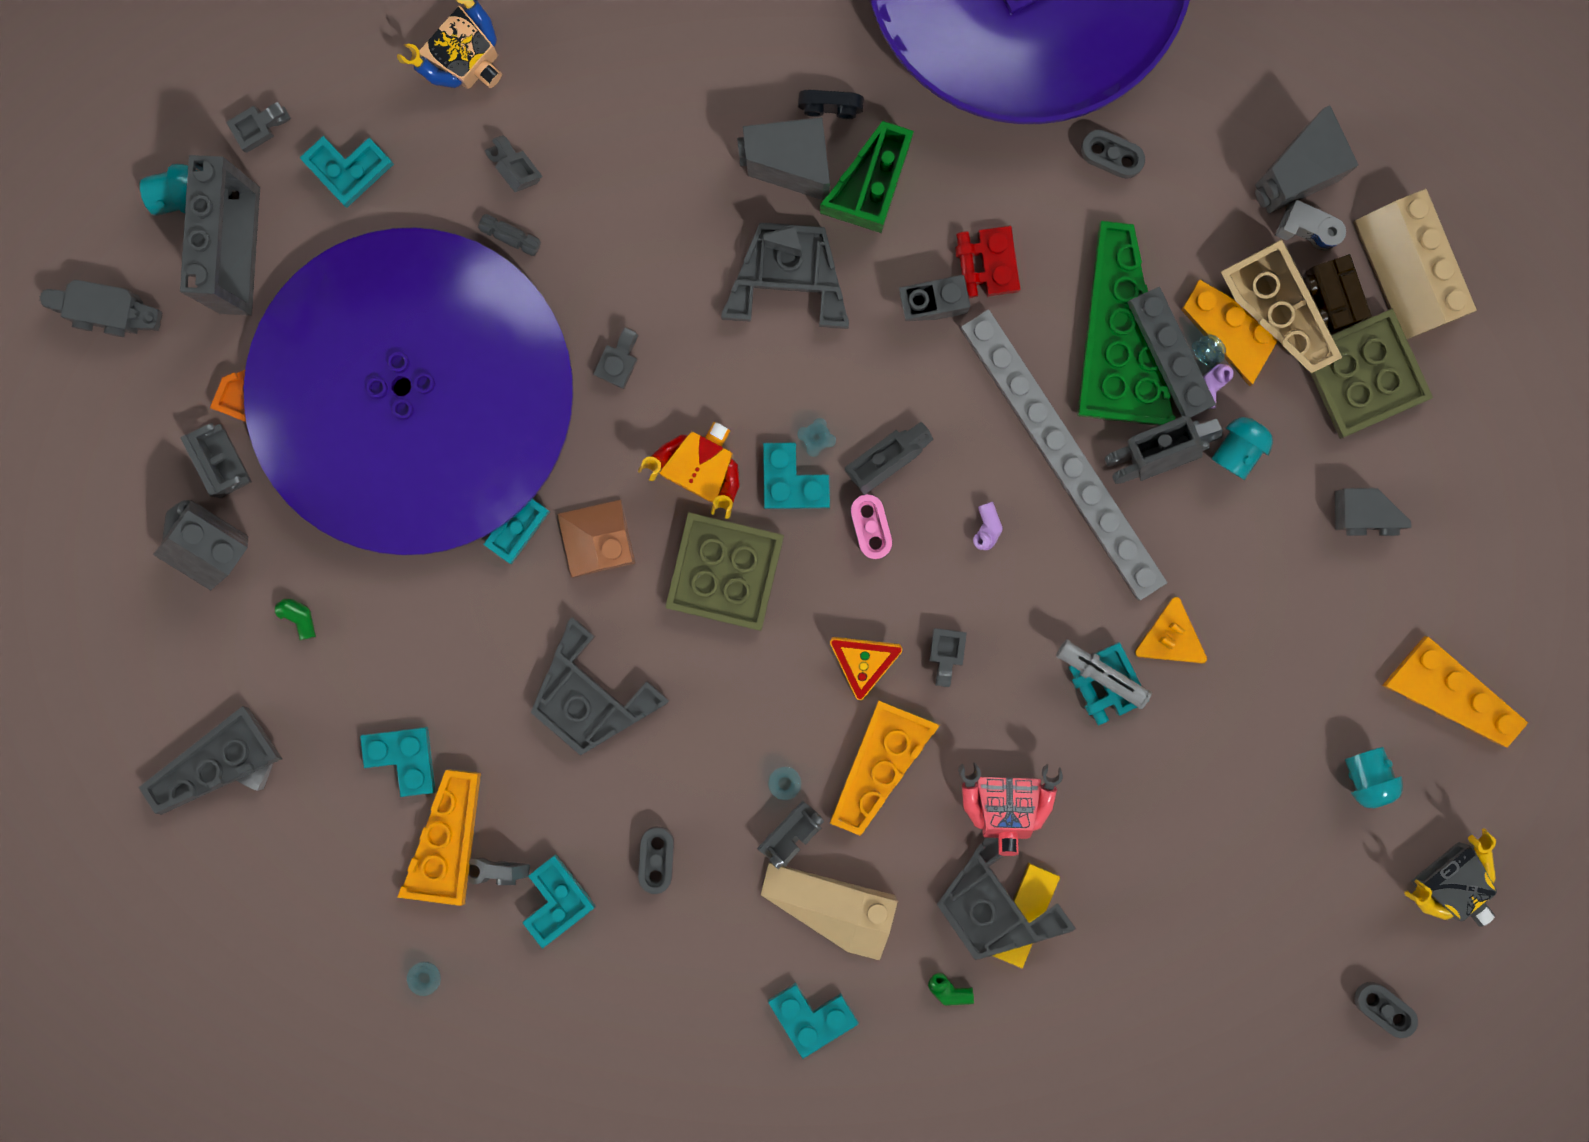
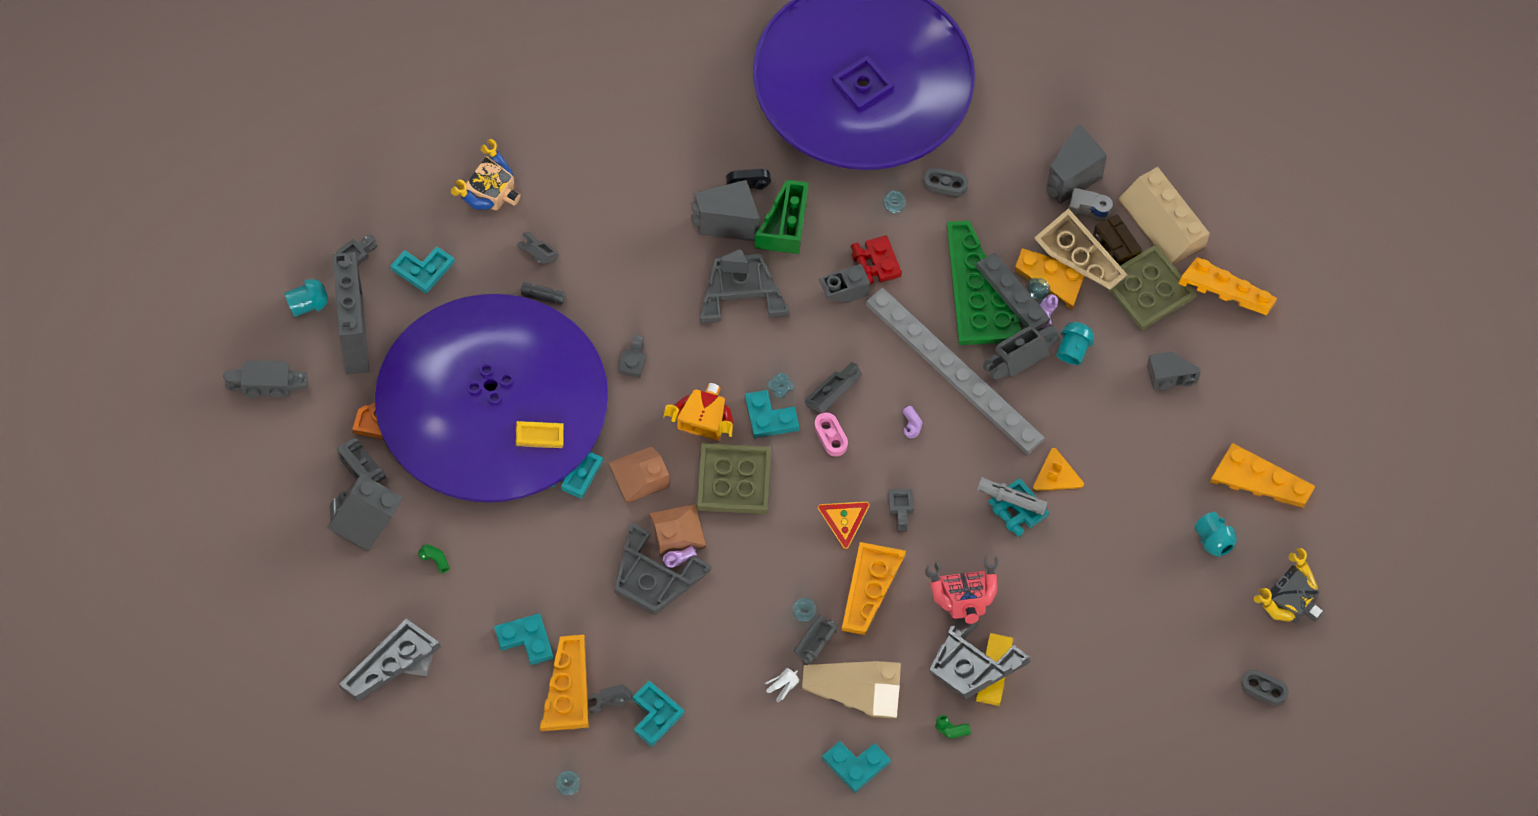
camera: 15 degrees left, 25 degrees down
(457, 475) = (539, 434): none -> yellow tile
(627, 676) = (675, 558): none -> lavender arm
(633, 632) = (677, 529): none -> nougat slope
(656, 859) = (722, 675): dark grey plate -> none
(741, 889) = (786, 678): none -> white piece
(1040, 166) = (894, 196): none -> clear light blue plate
(1467, 382) = (1227, 286): none -> light orange wing

